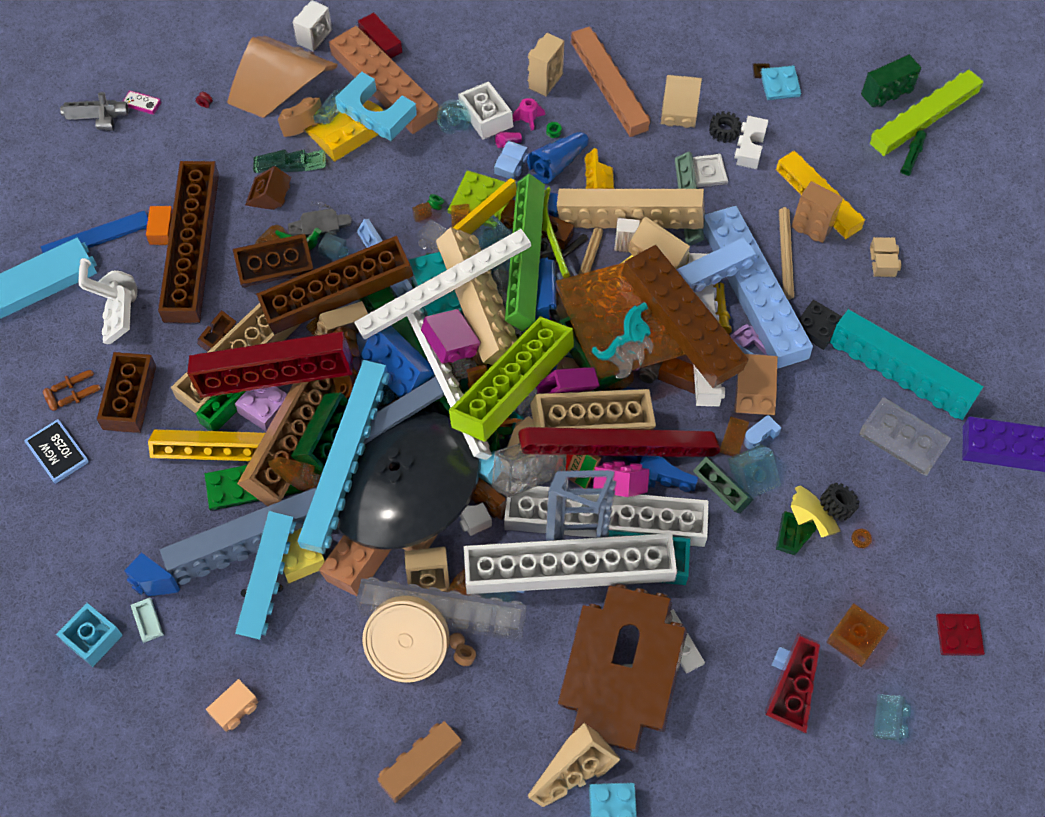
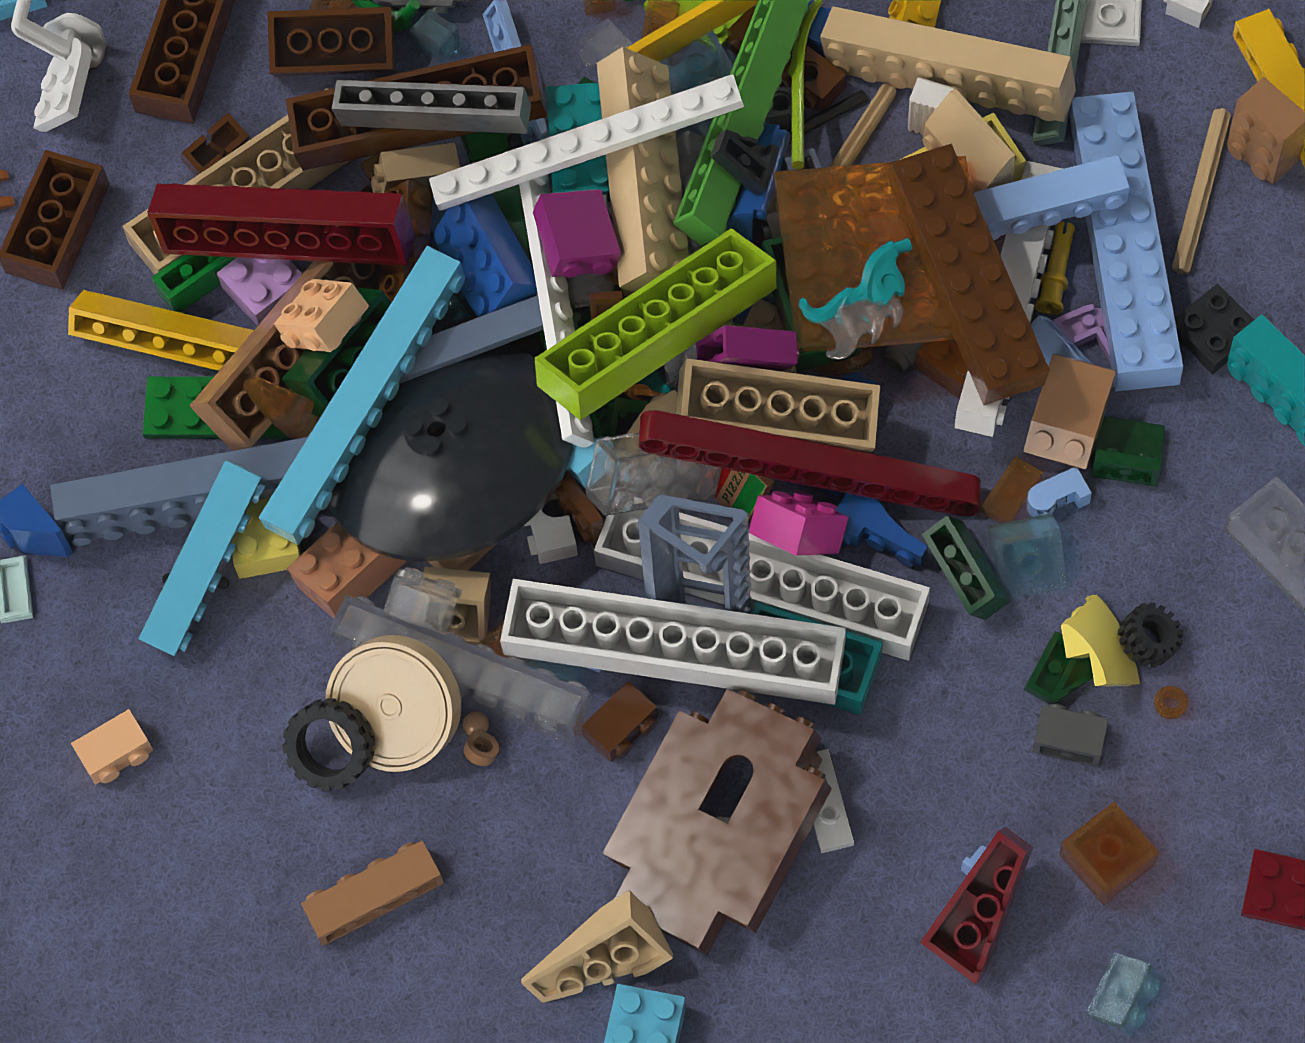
camera: 20 degrees right, 5 degrees up
(307, 413) = (321, 315): none -> light nougat brick
(347, 279) = (431, 106): none -> flat silver brick
(362, 692) = (301, 759): none -> black tyre
(410, 571) = (423, 600): none -> clear brick
(536, 277) = (745, 159): none -> black wing
(545, 620) = (620, 722): none -> reddish brown brick
(794, 402) = (1129, 451): none -> dark green bracket
(812, 569) = (1070, 734): none -> dark grey brick

